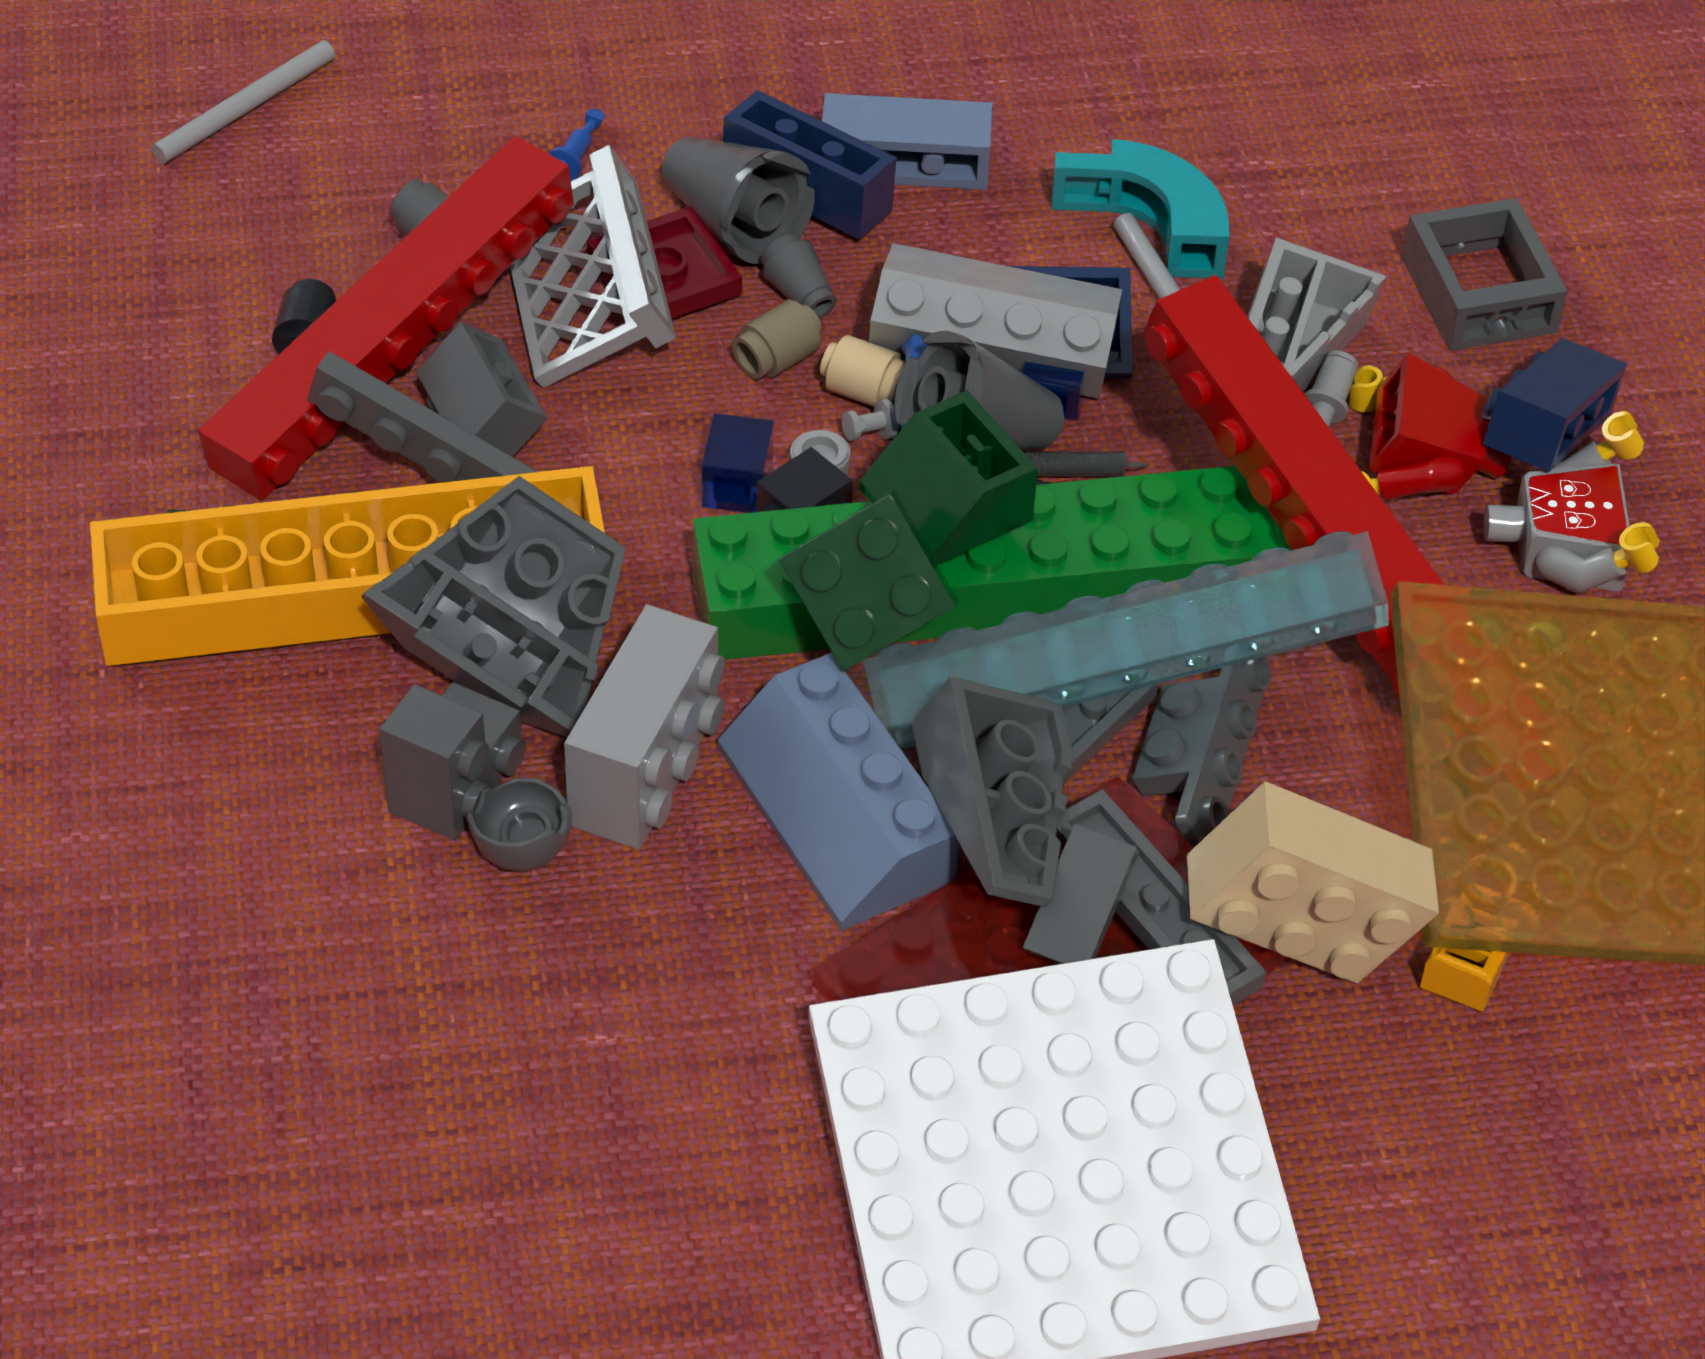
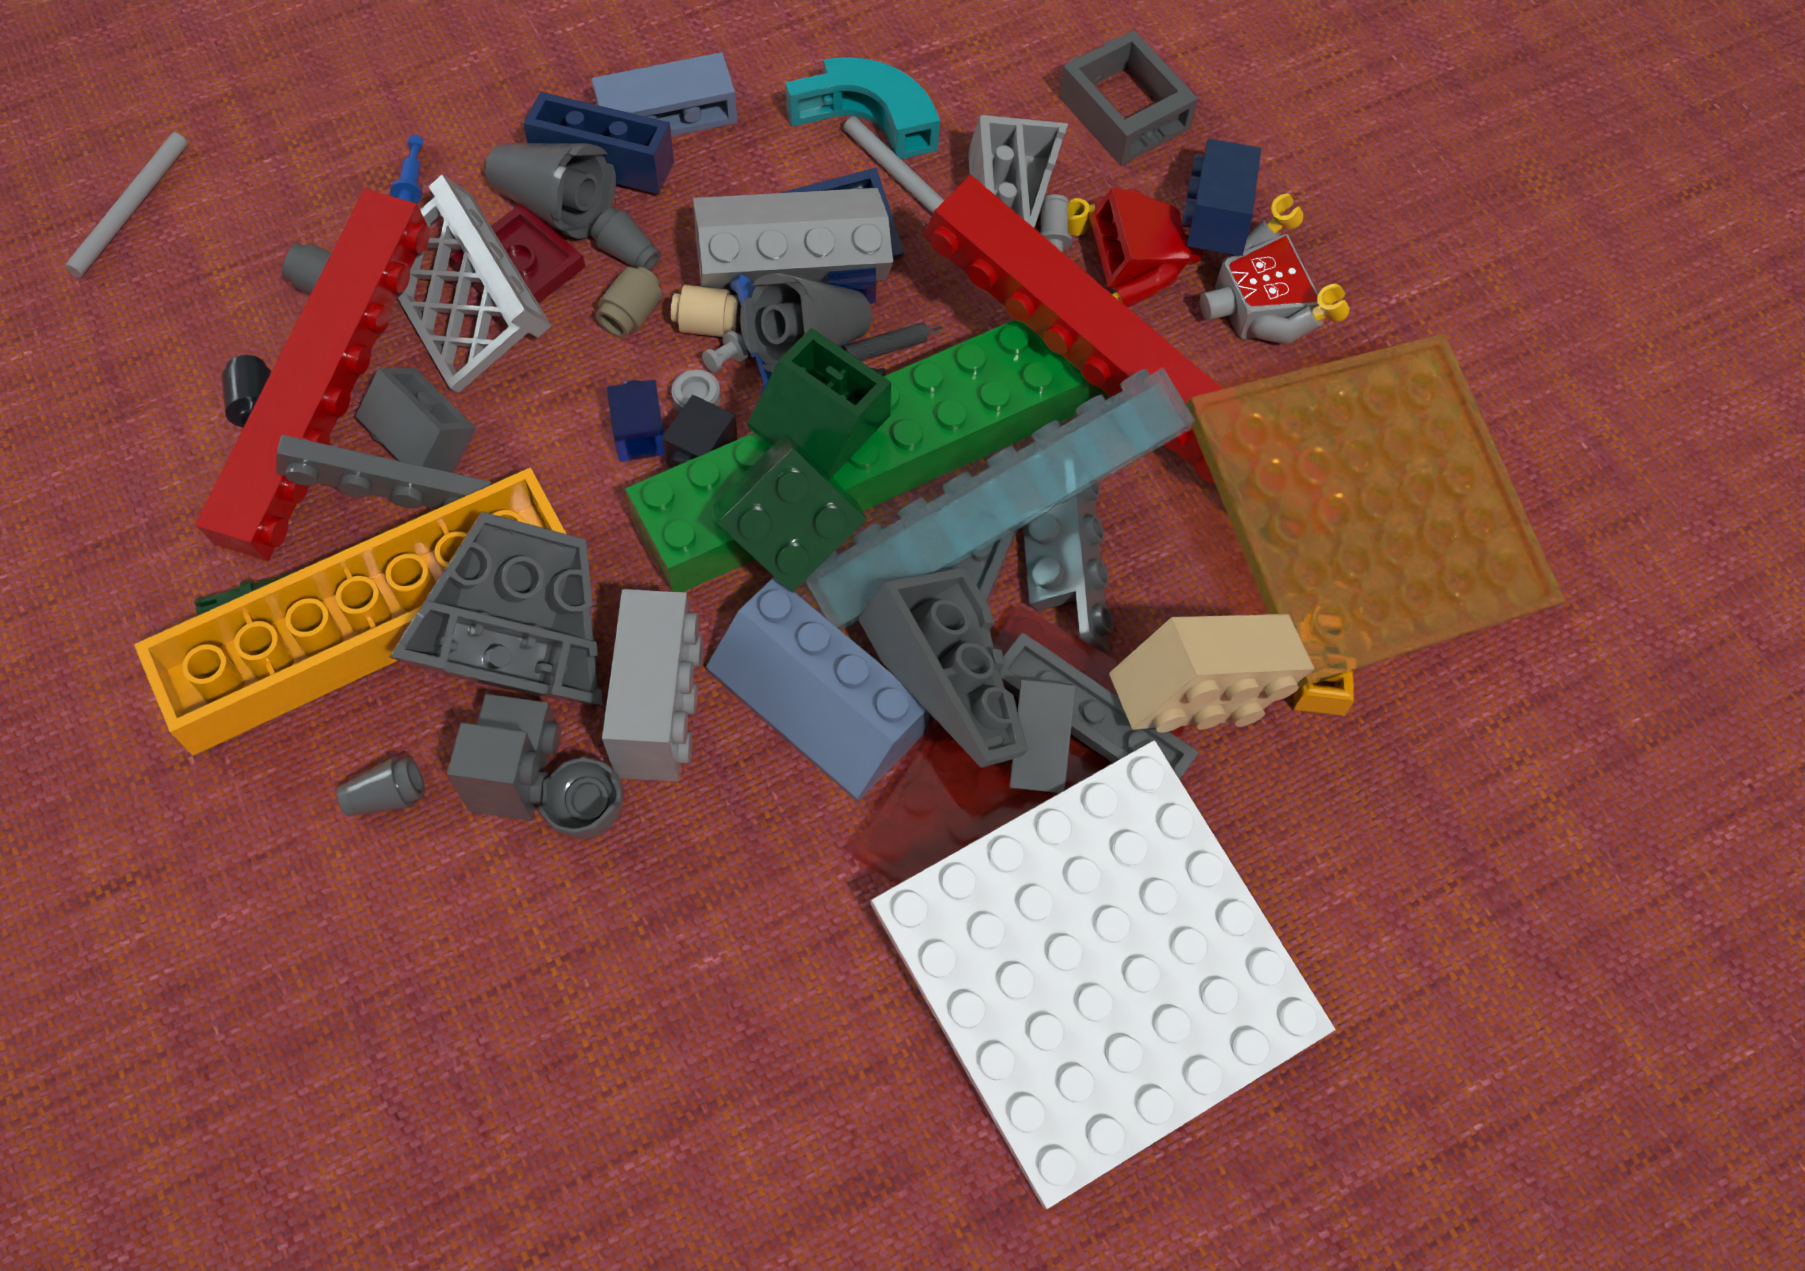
camera: 20 degrees left, 15 degrees up
(301, 753) = (383, 788): none -> dark grey cone

